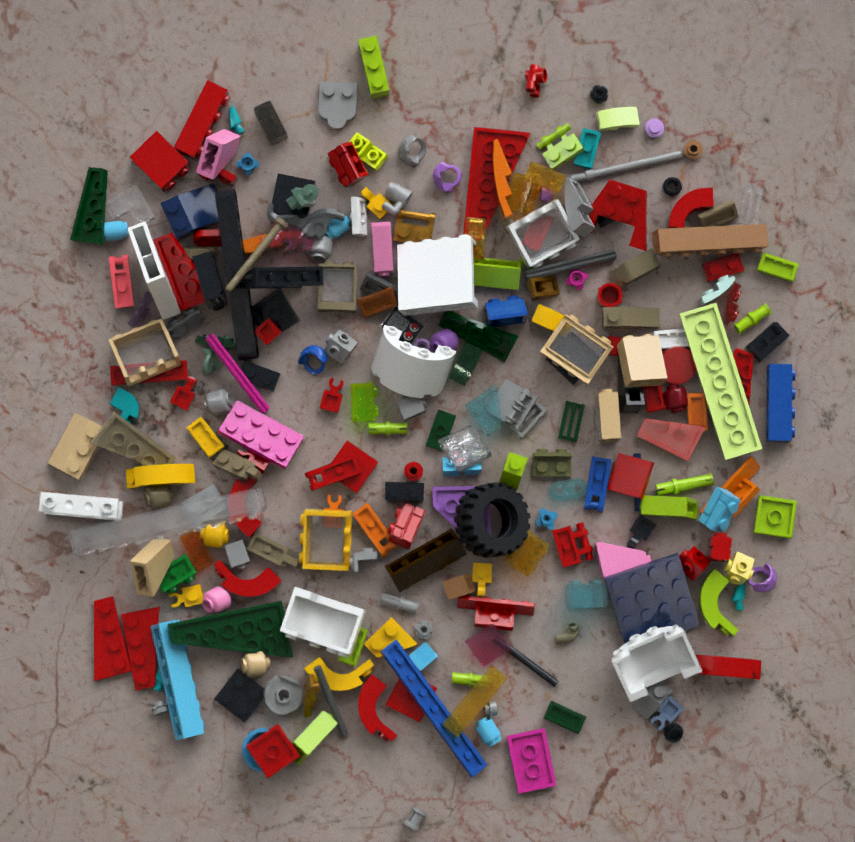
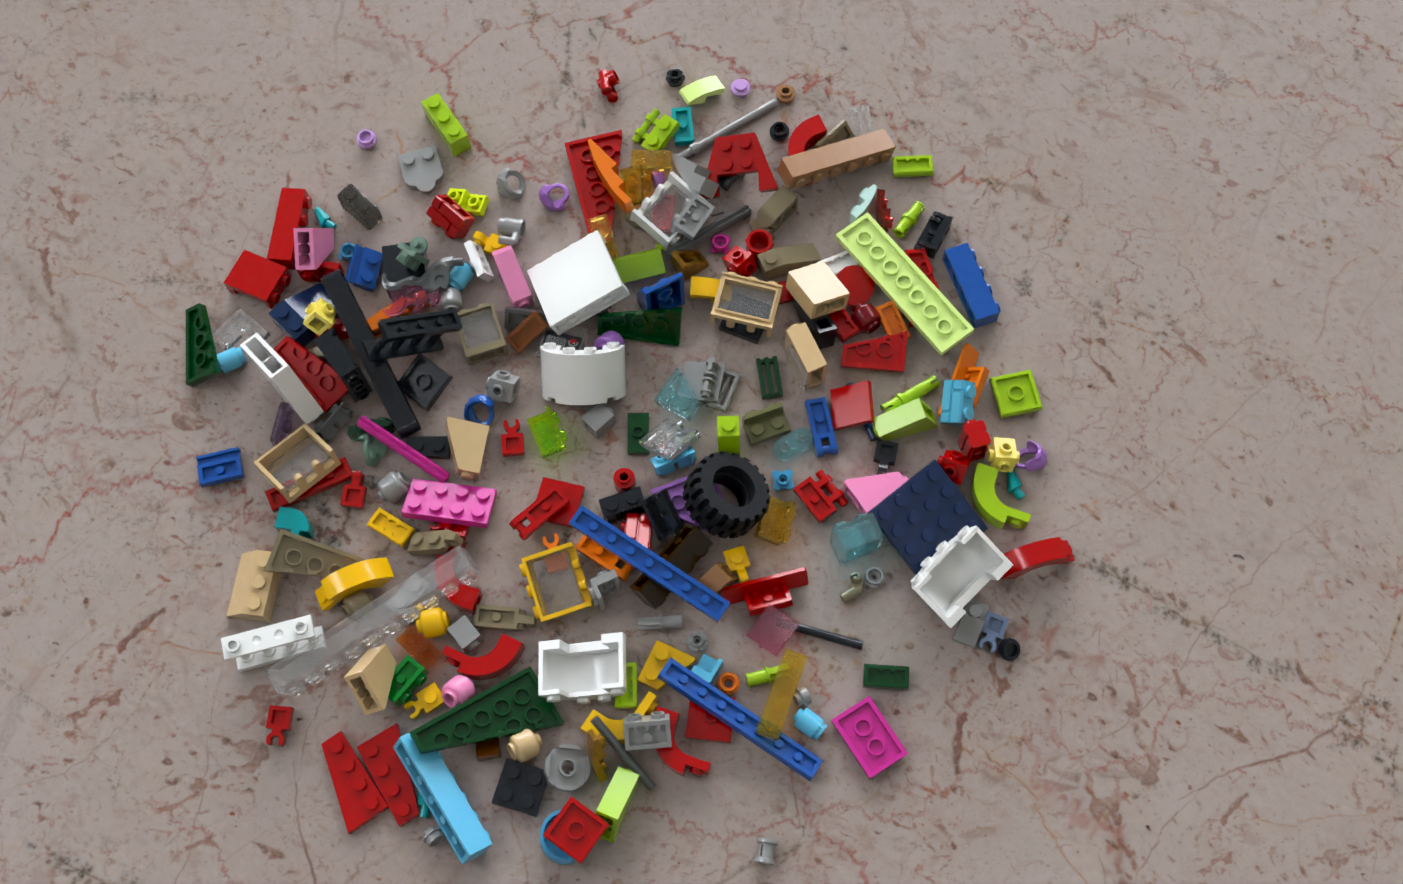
camera: 15 degrees left, 15 degrees down
(66, 569) = (278, 721): none -> red plate
(78, 328) = (220, 467): none -> blue plate
(121, 282) = (253, 407): coral plate -> none
(203, 227) = (319, 316): none -> light yellow brick
(225, 656) = (488, 750): none -> reddish brown slope
(256, 185) = (364, 268): none -> blue plate
(268, 331) = (422, 397): red plate -> none
(279, 224) = (398, 287): dark tan bar -> none
(292, 390) = (467, 446): none -> tan slope
(297, 53) = (366, 139): none -> lavender plate
(356, 692) = (647, 731): none -> light grey bracket
(387, 428) = (582, 450): lime pin -> none
(406, 557) = (649, 563): none -> blue plate
(415, 233) = (530, 259): pearl gold plate -> none
(433, 513) = (662, 514): none -> black hinge
(436, 668) = (728, 676): none -> orange plate
(465, 363) = (638, 359): clear green slope -> none
(559, 251) = (692, 217): none -> light grey bracket
(586, 306) = (740, 261): none -> red brick
(588, 636) = (874, 571): none -> light grey plate
(723, 266) = (851, 189): red plate -> none

